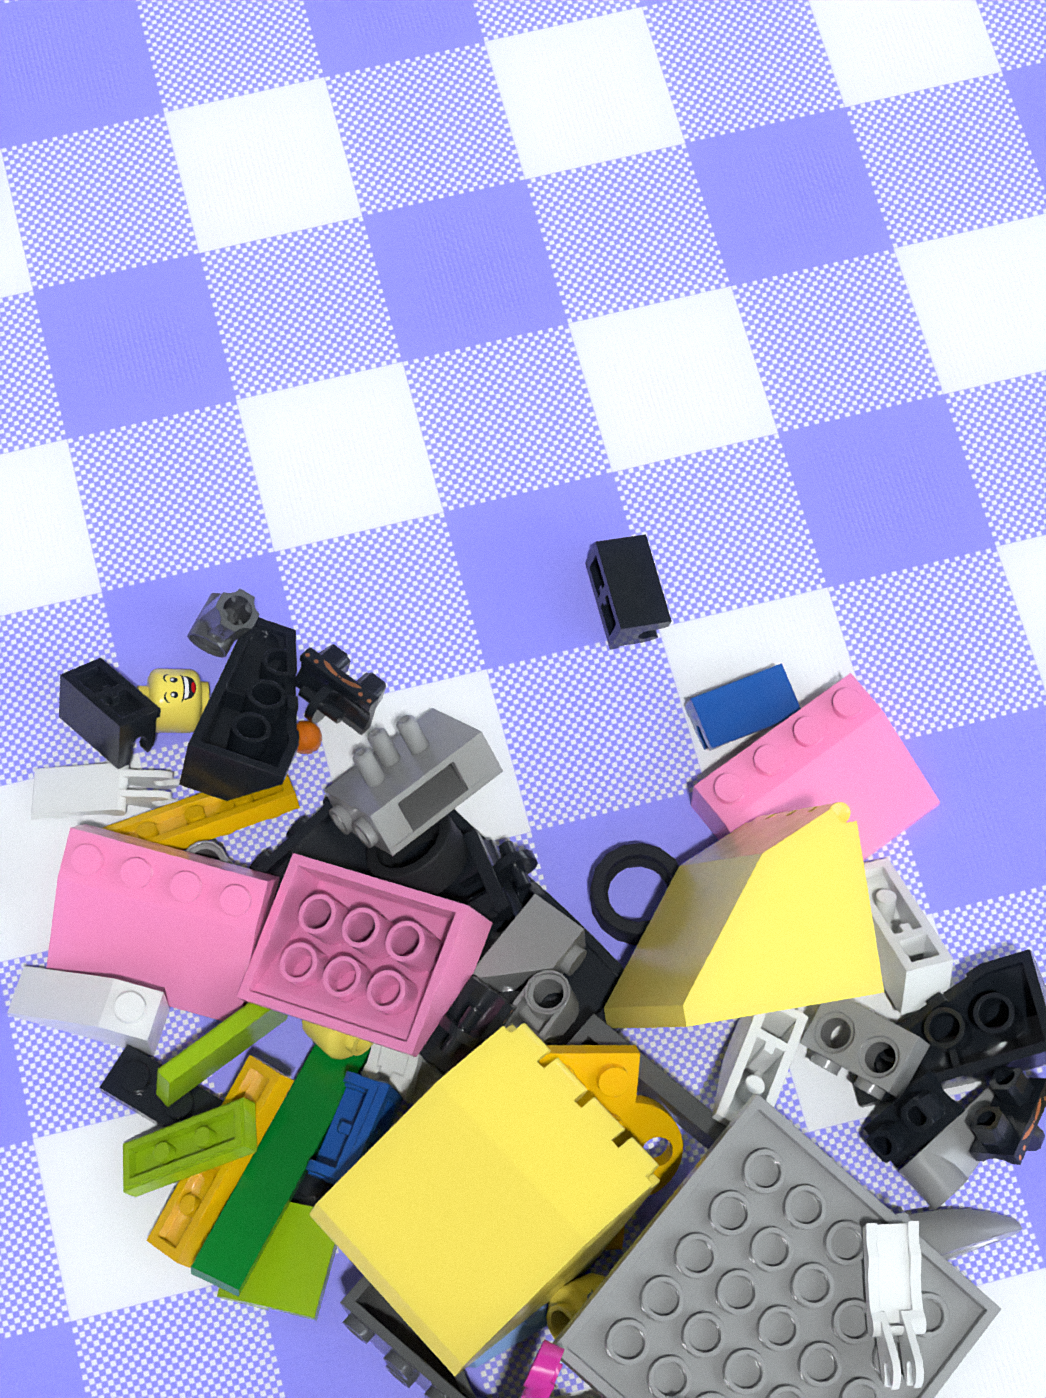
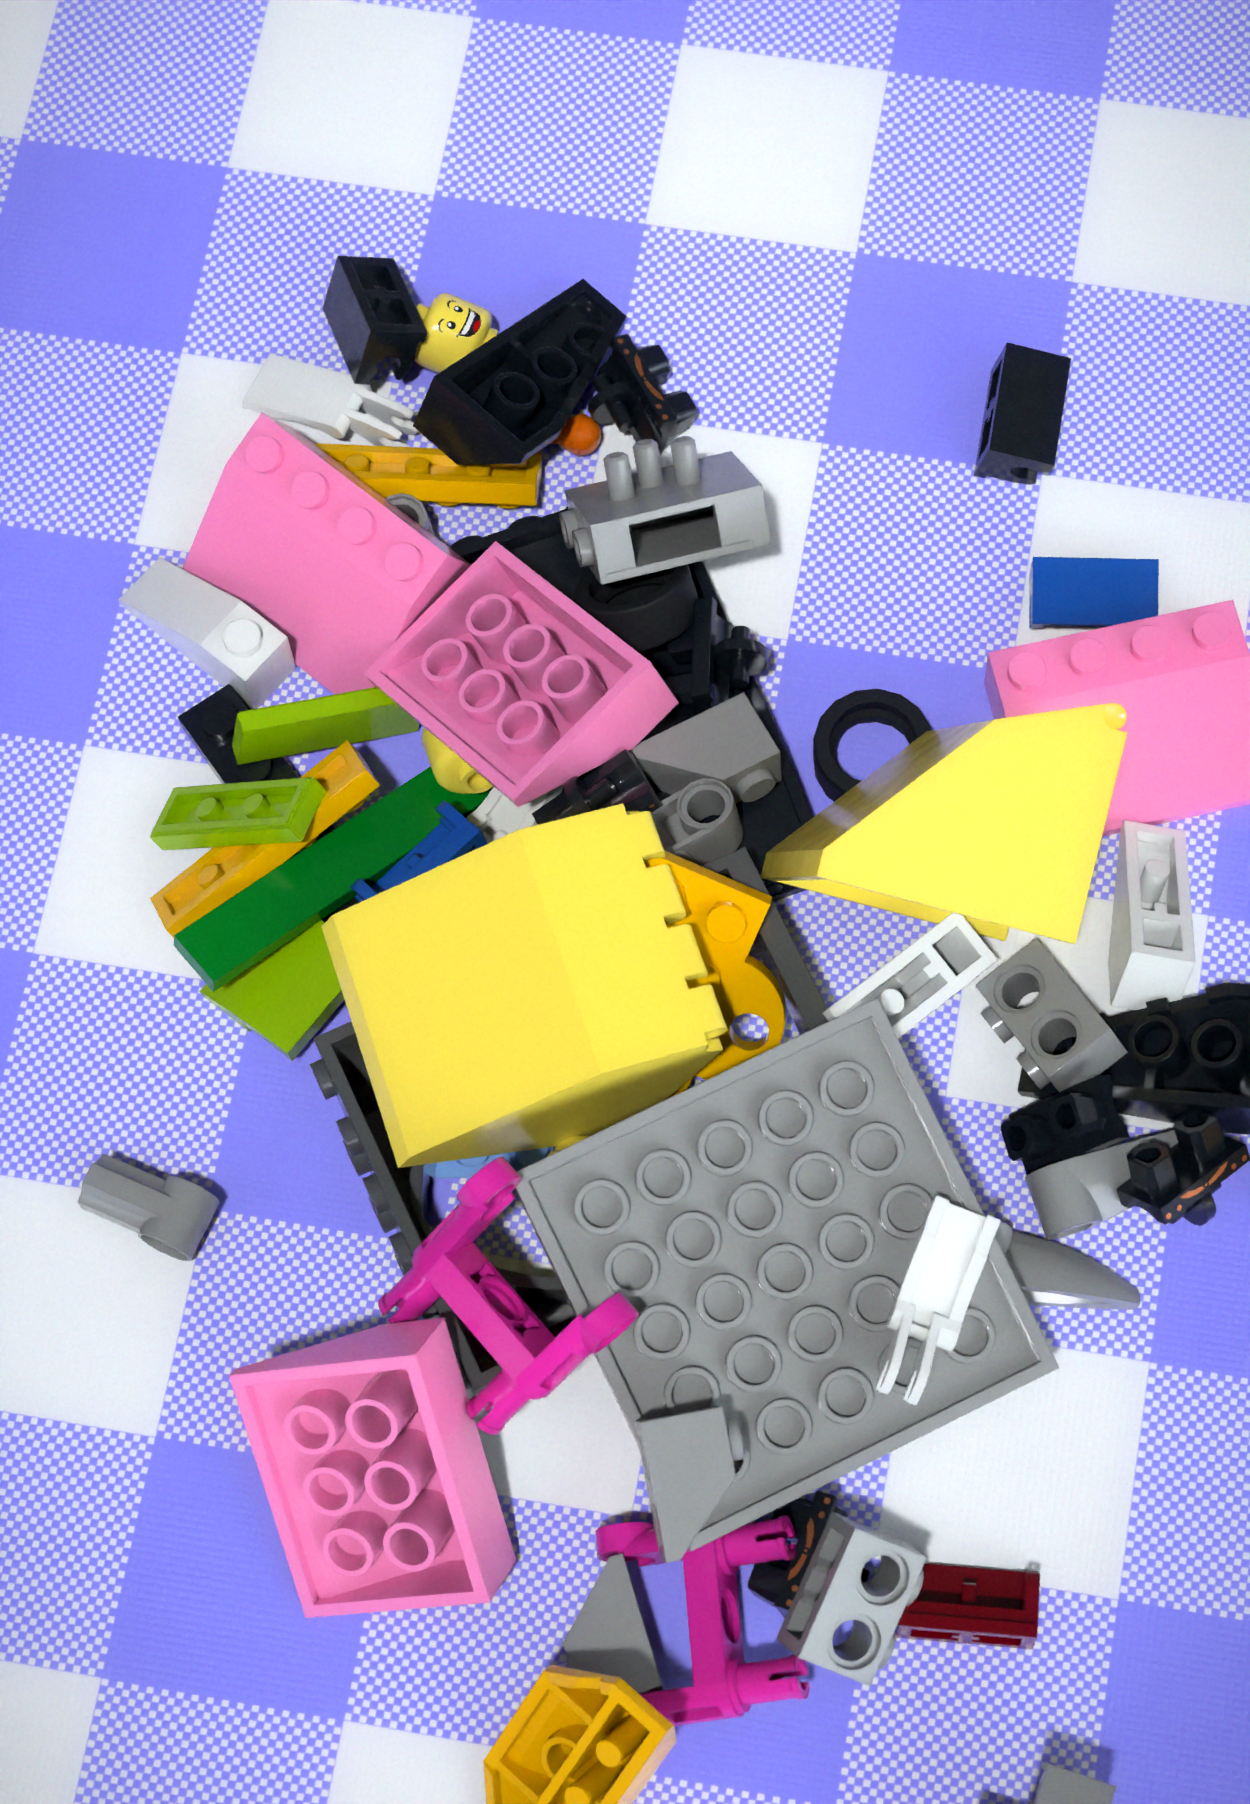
camera: 30 degrees right, 0 degrees up
(223, 621) = (544, 270): dark grey piece -> none

